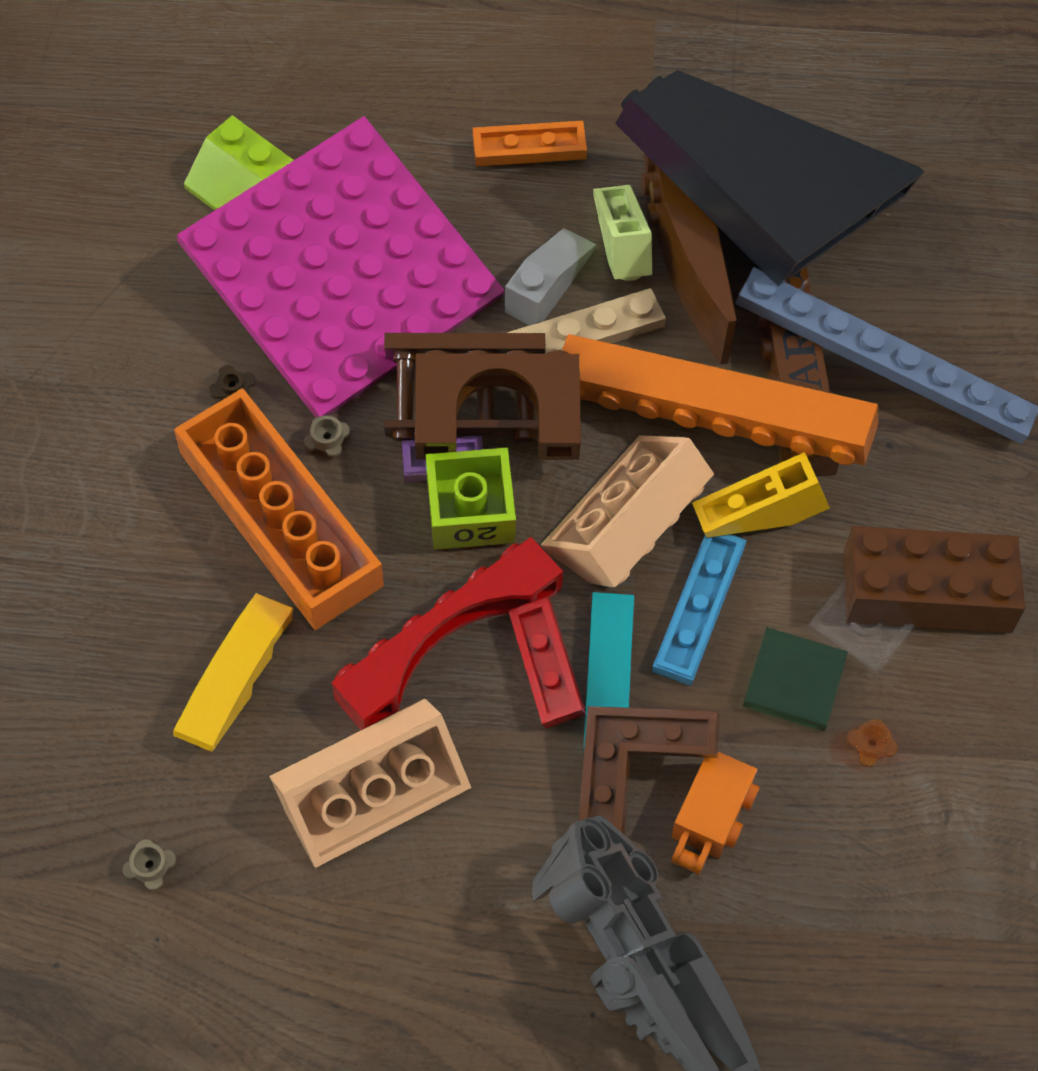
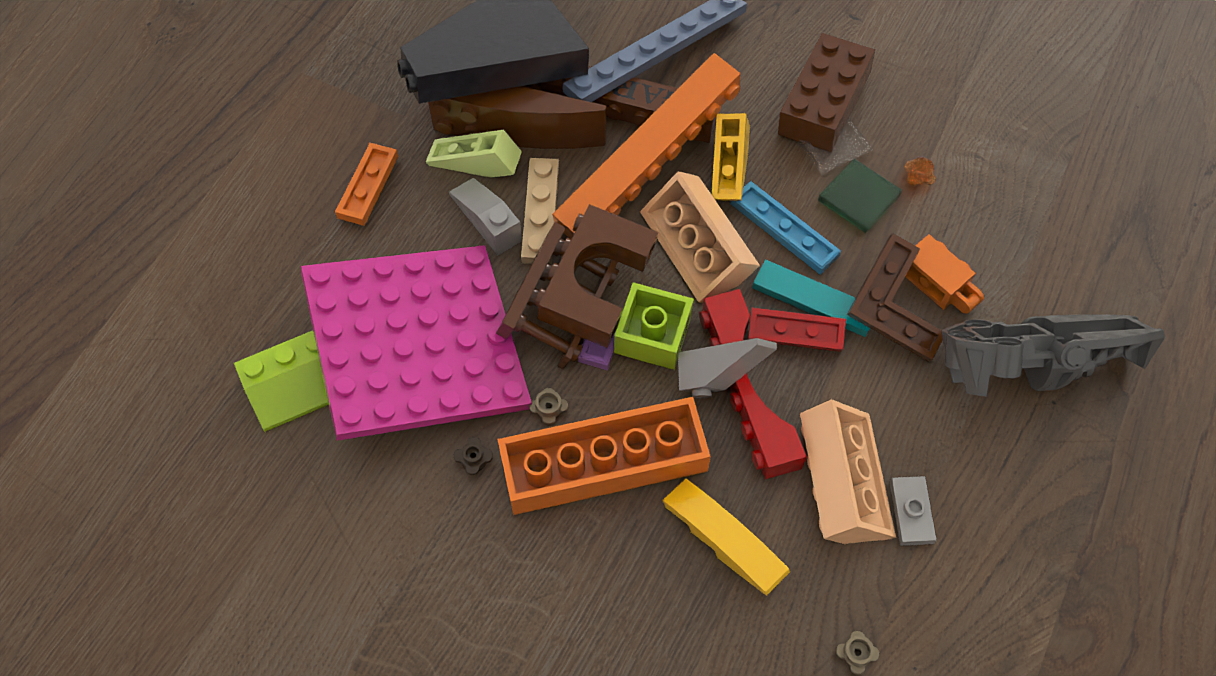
camera: 65 degrees left, 0 degrees up
(357, 875) = (912, 511): none -> light grey plate
(435, 579) = (720, 365): none -> light grey slope

